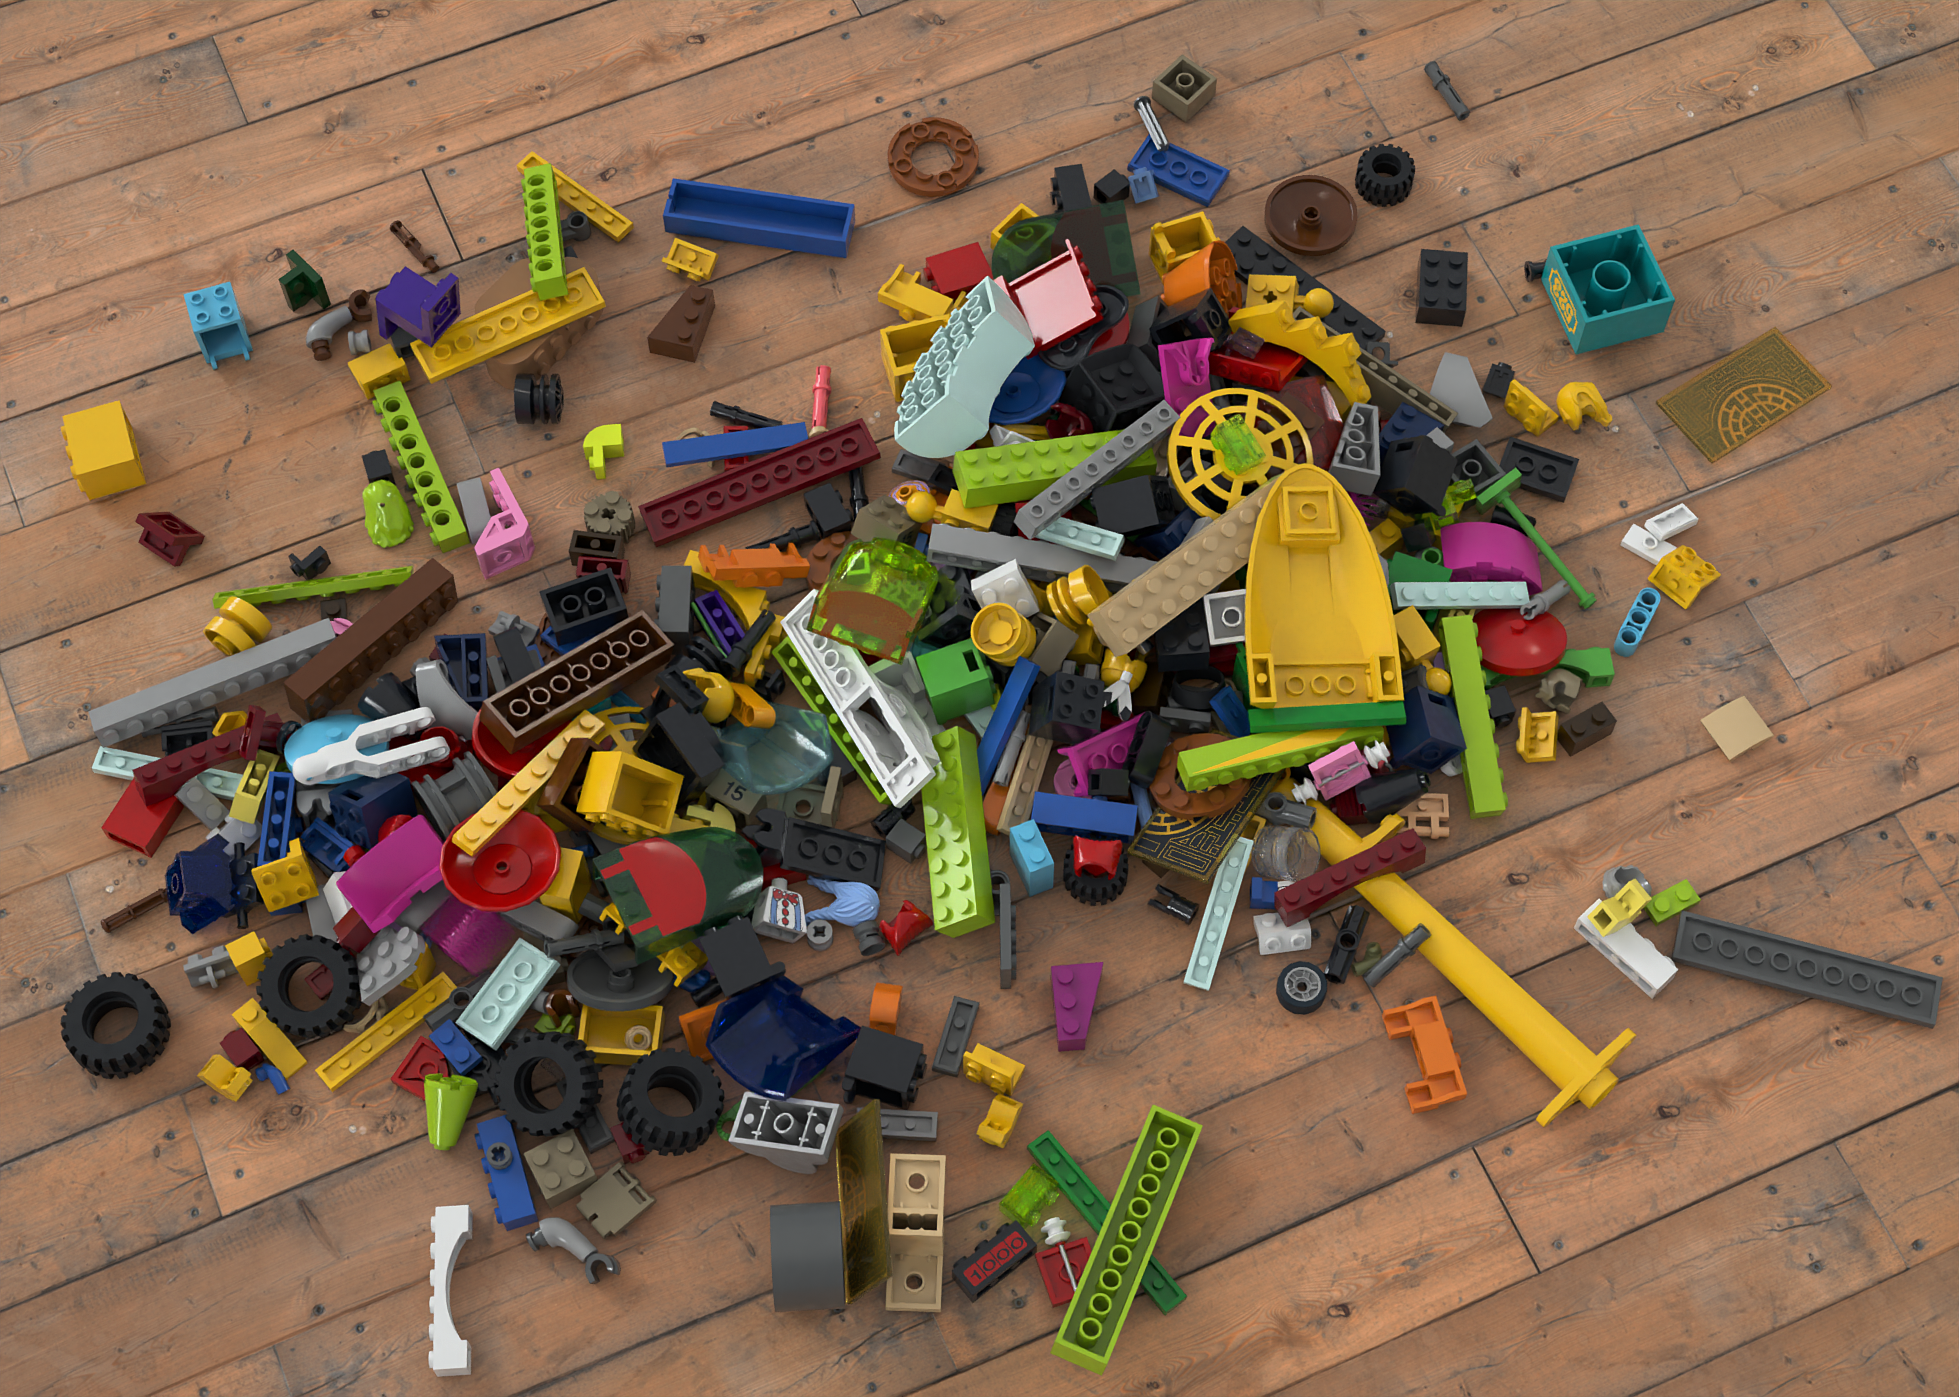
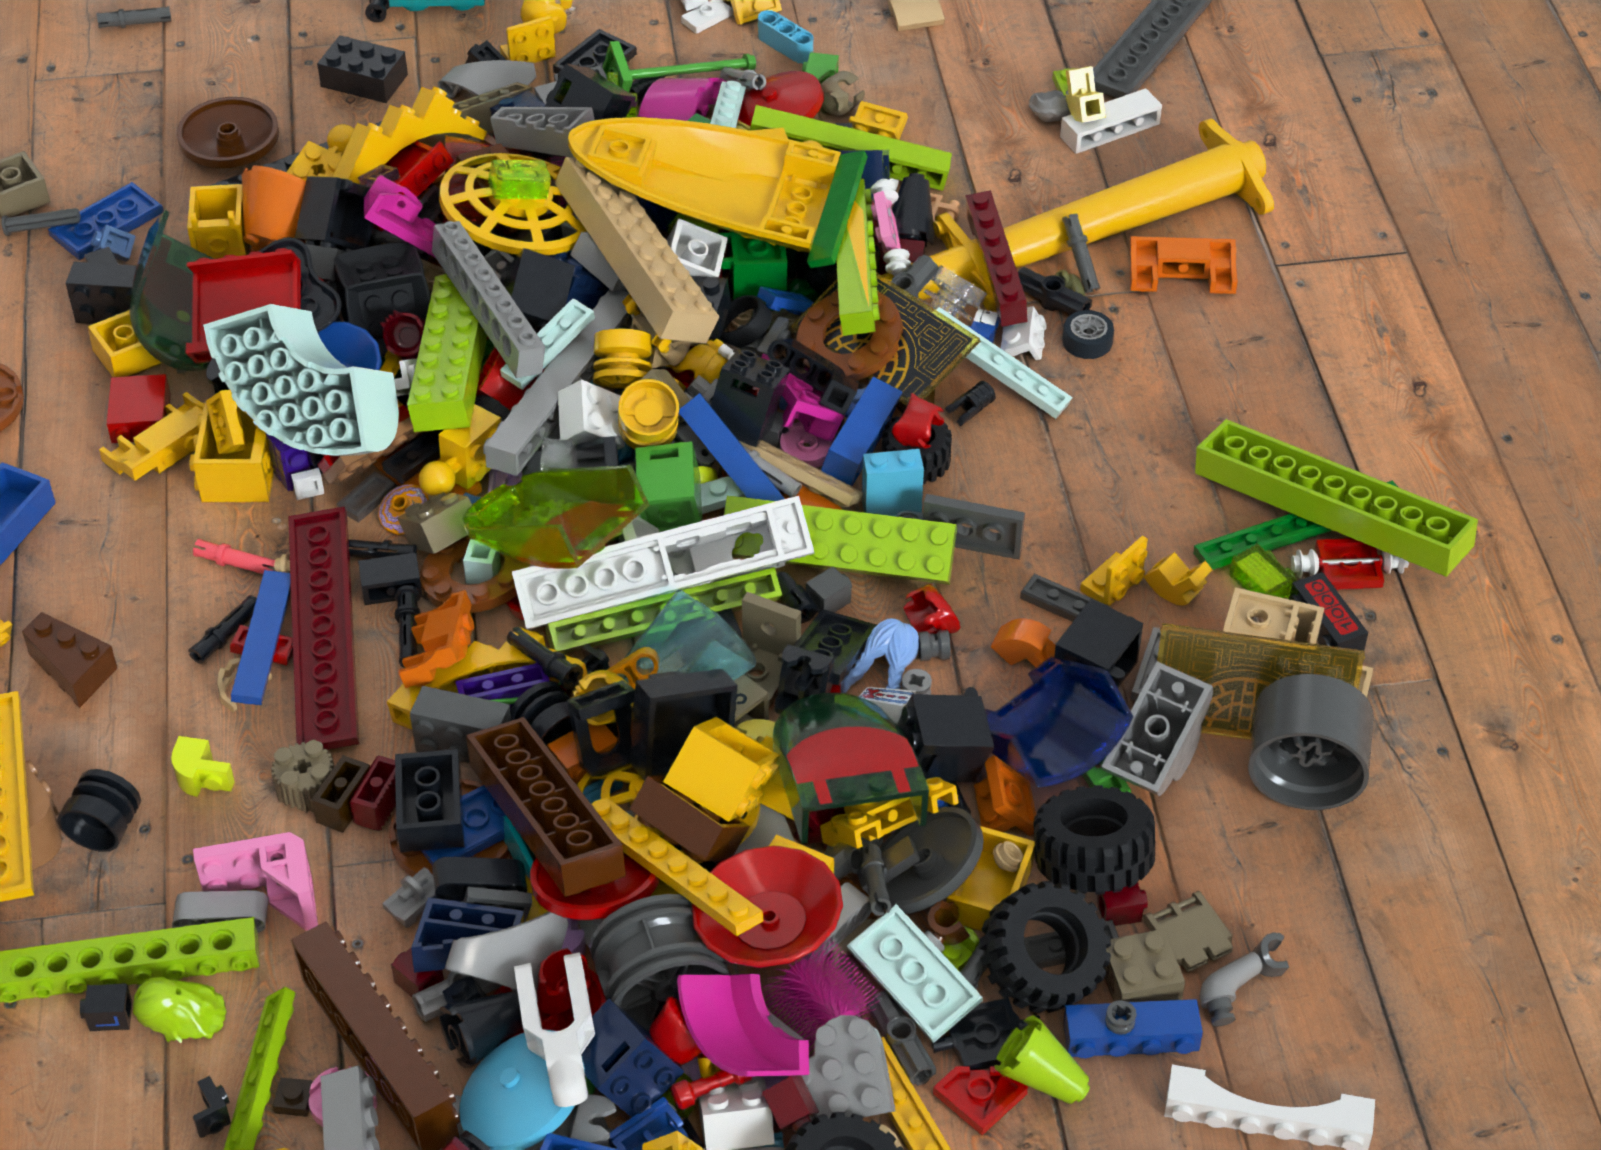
camera: 75 degrees left, 15 degrees down
(456, 1047) = (963, 1047): blue plate -> none
(920, 340) = (225, 423): none -> yellow bracket
(949, 582) = (556, 454): none -> clear brick
(1074, 1000) = (1061, 496): magenta wedge -> none
(1385, 160) = (210, 73): black tyre -> none
(1586, 729) = (883, 86): dark brown brick -> none

